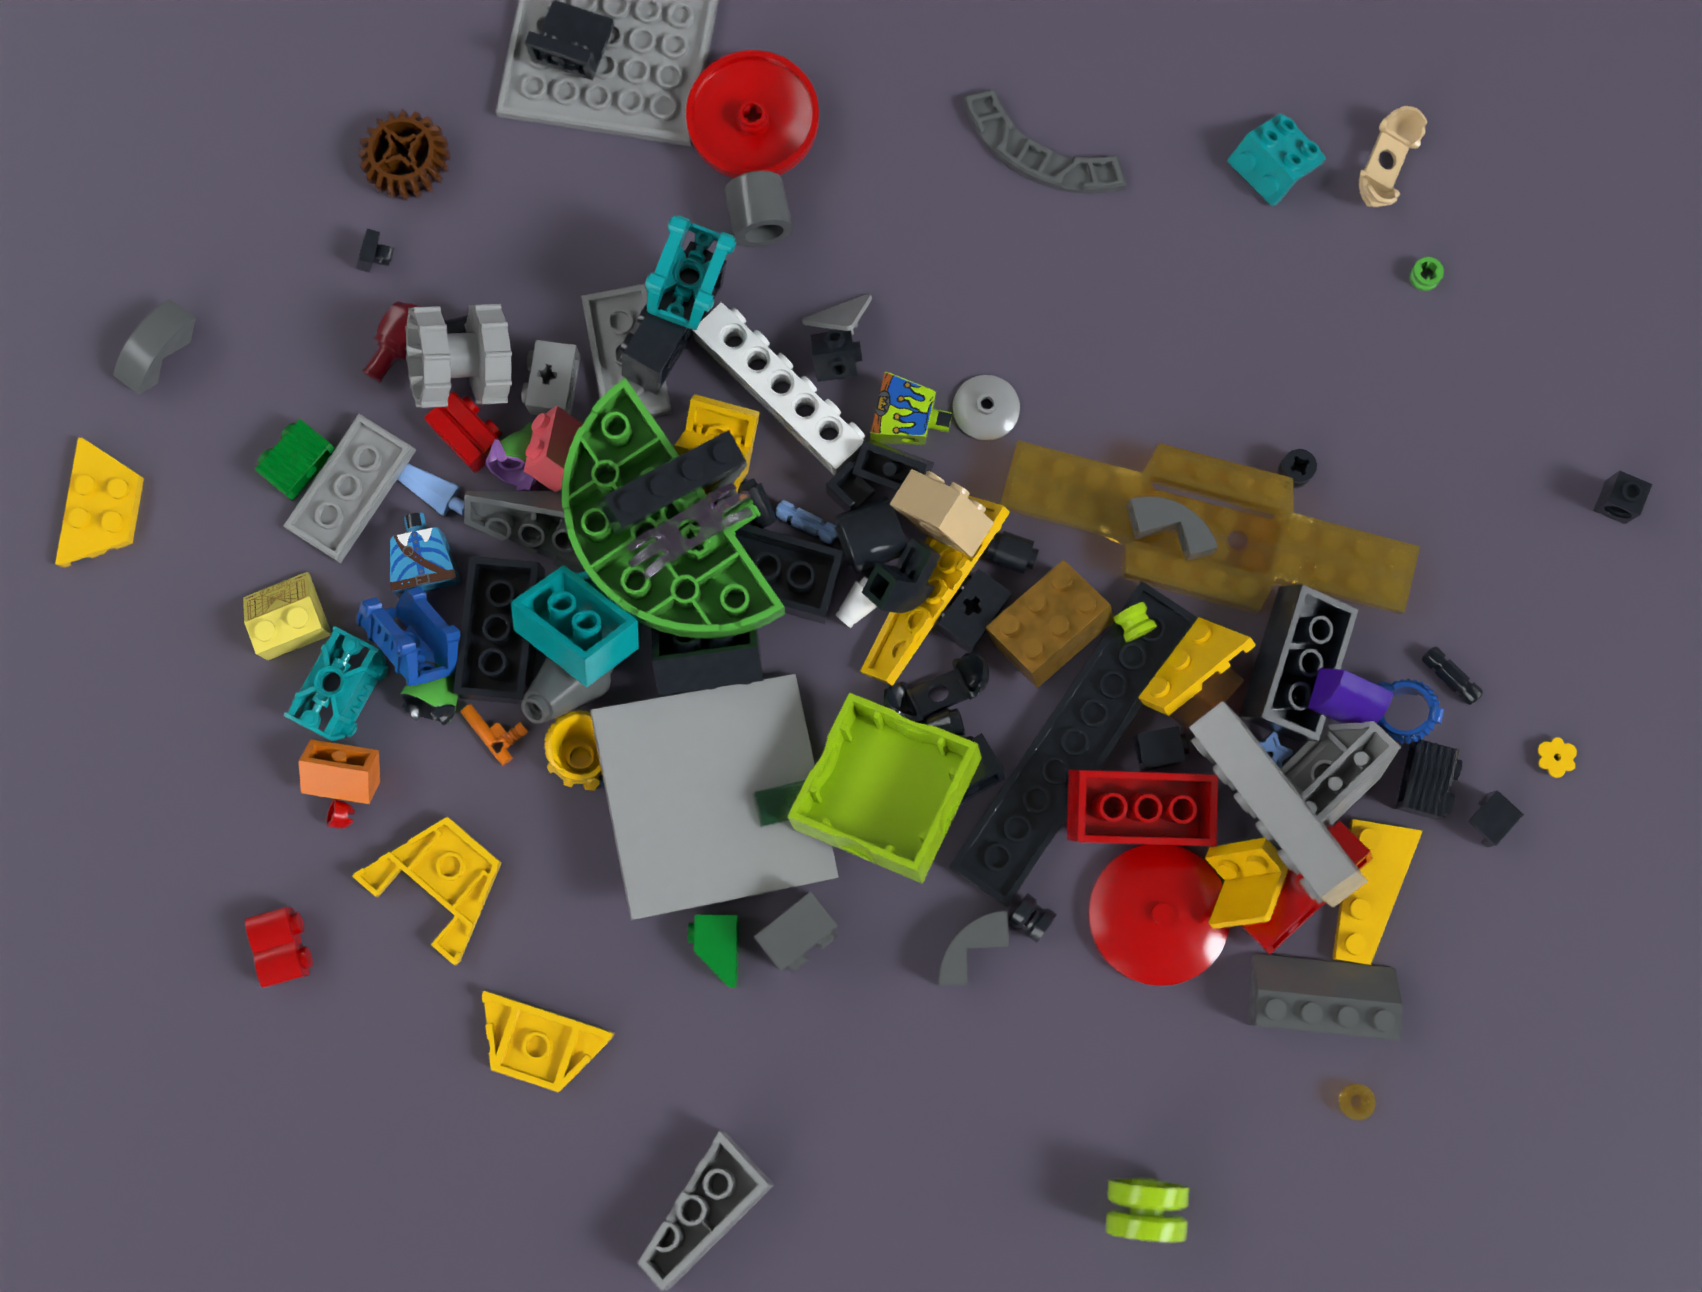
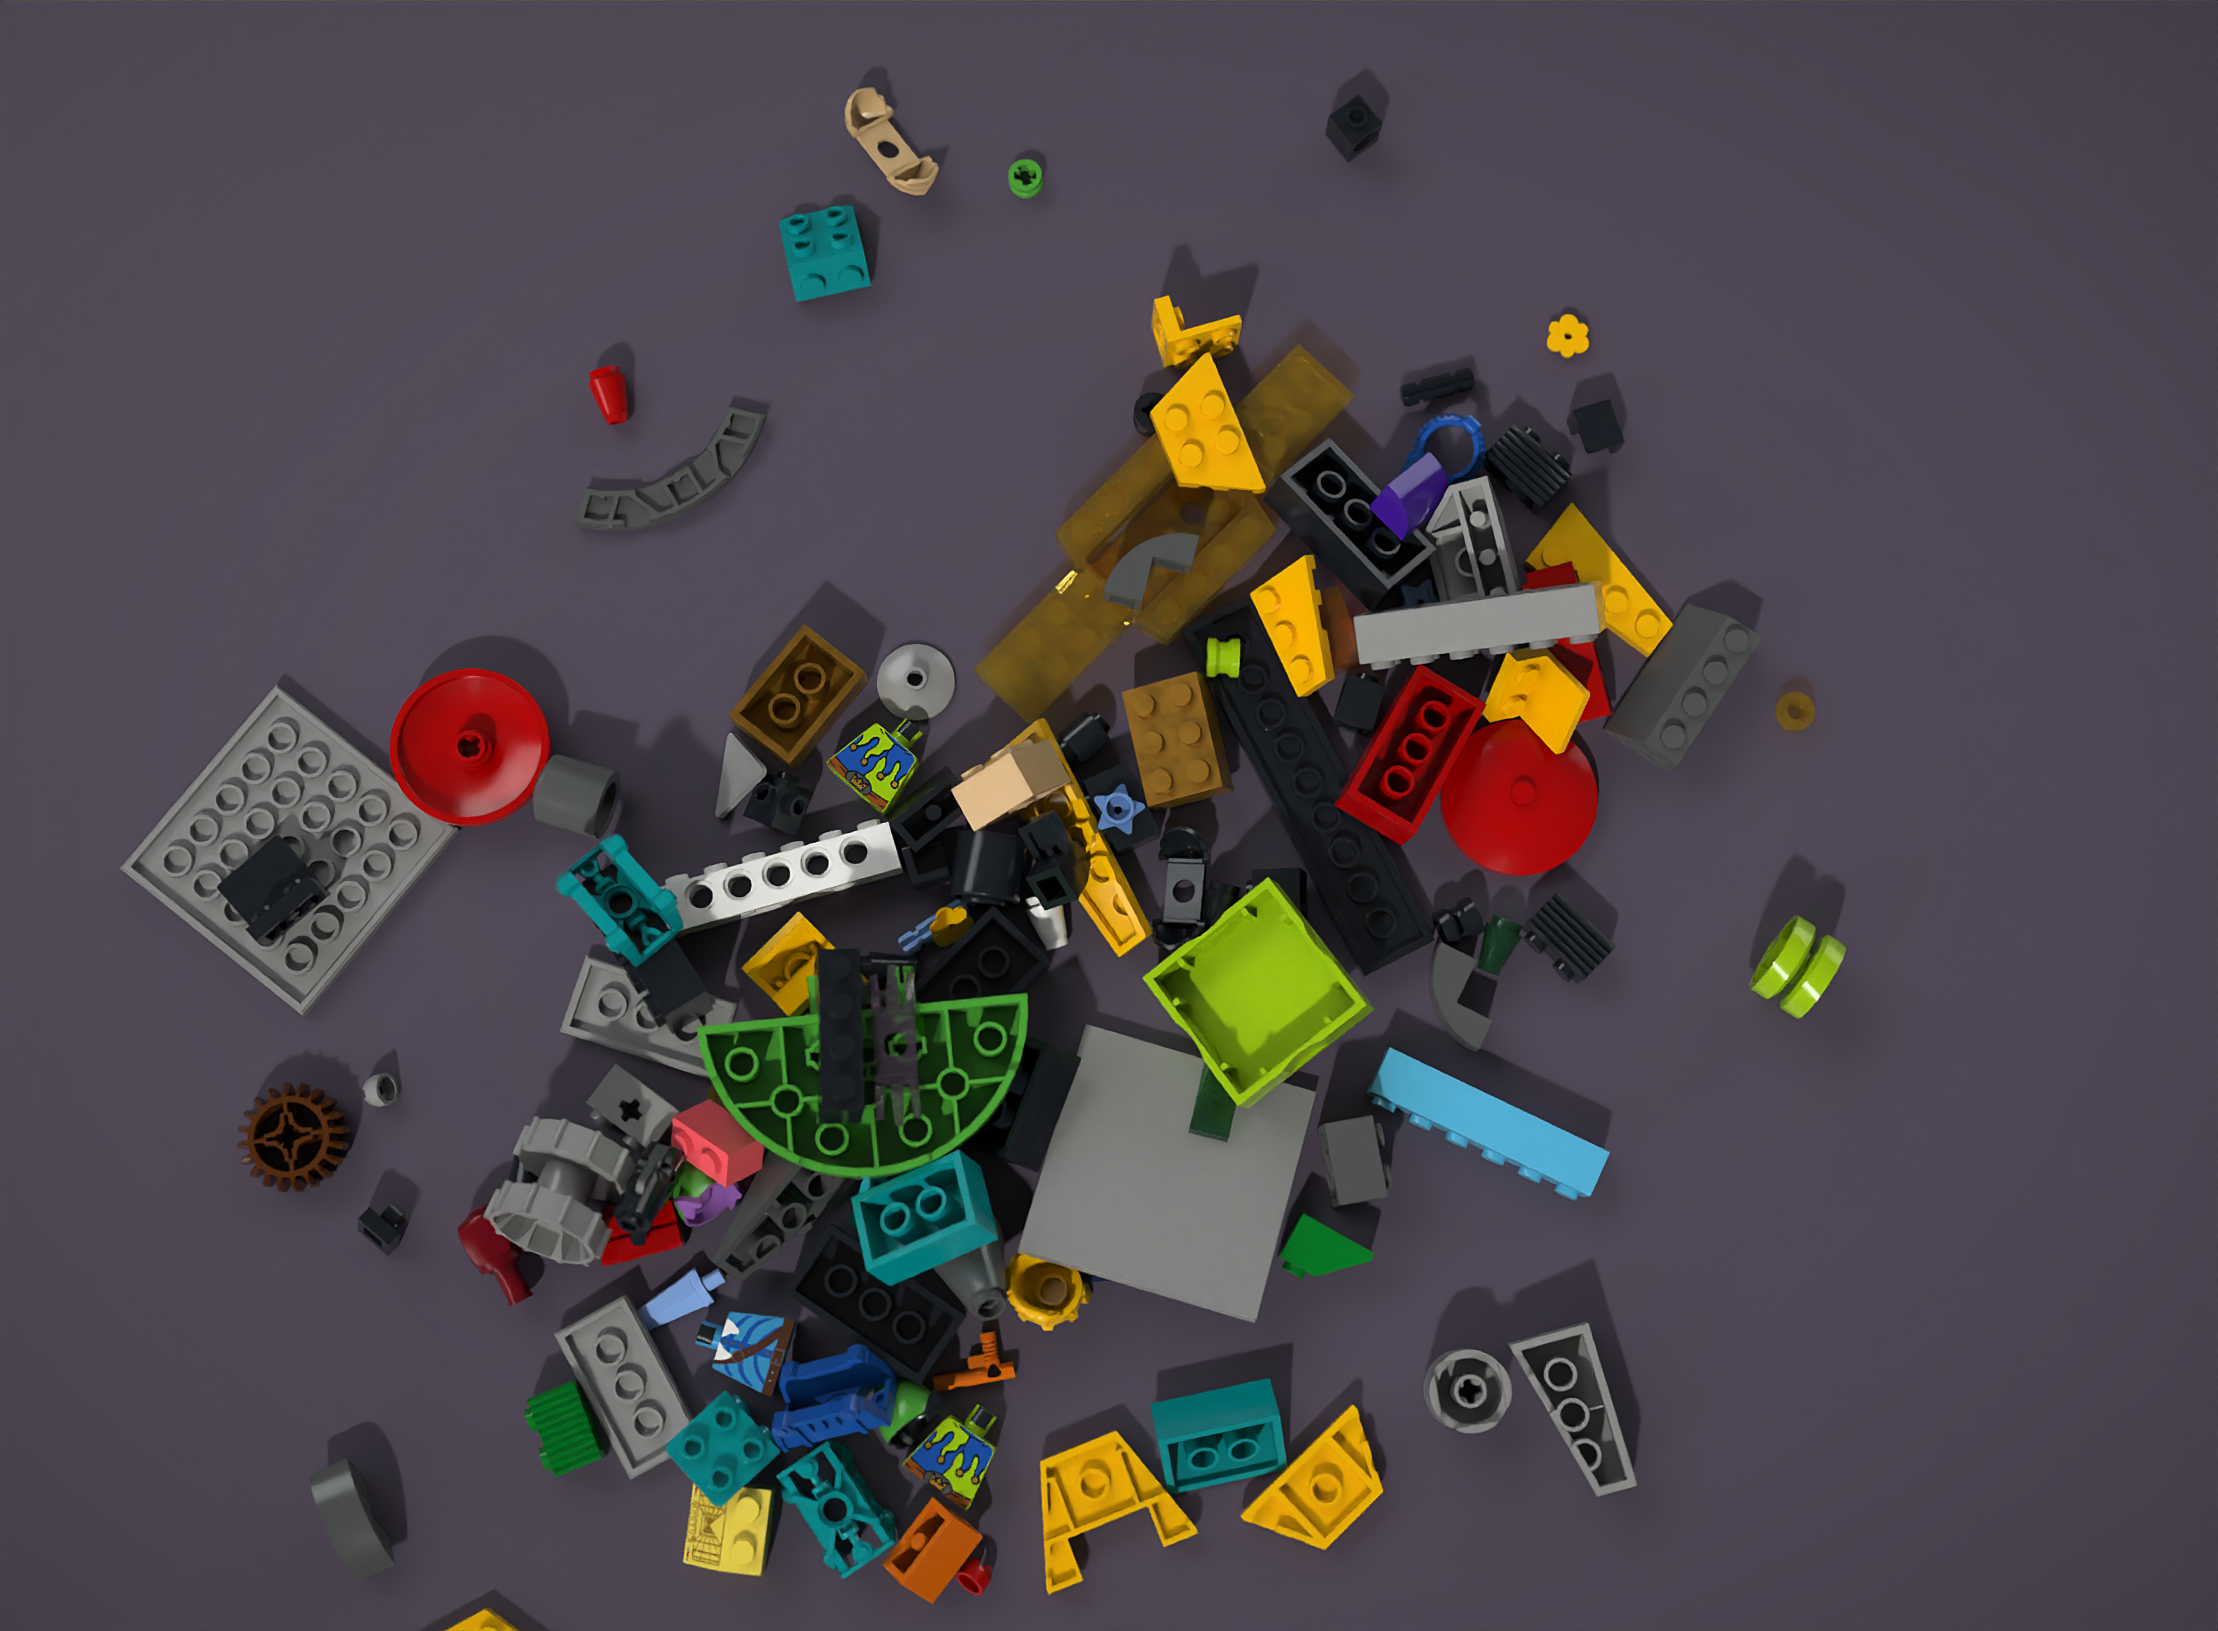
camera: 70 degrees left, 0 degrees up
(334, 576) = (722, 1448): none -> teal bracket
(418, 752) = (955, 1456): none -> torso
(467, 203) = (389, 1090): none -> light grey hinge
(491, 416) = (648, 1190): none -> black piece
(535, 942) = (1219, 1436): none -> teal slope
(648, 1112) = (1485, 1405): none -> light grey brick
(812, 529) = (950, 925): none -> yellow plant
(886, 1025) = (1488, 1124): none -> medium azure brick
(922, 325) = (799, 697): none -> pearl gold brick
(979, 602) = (1120, 799): none -> medium blue plate
(1033, 959) = (1498, 944): none -> clear green cone
(1067, 1011) = (1567, 938): none -> black brick
(1075, 66) = (610, 393): none -> red cone
(1303, 511) = (1204, 433): none -> yellow wing
(1367, 463) = (1184, 346): none -> yellow bracket

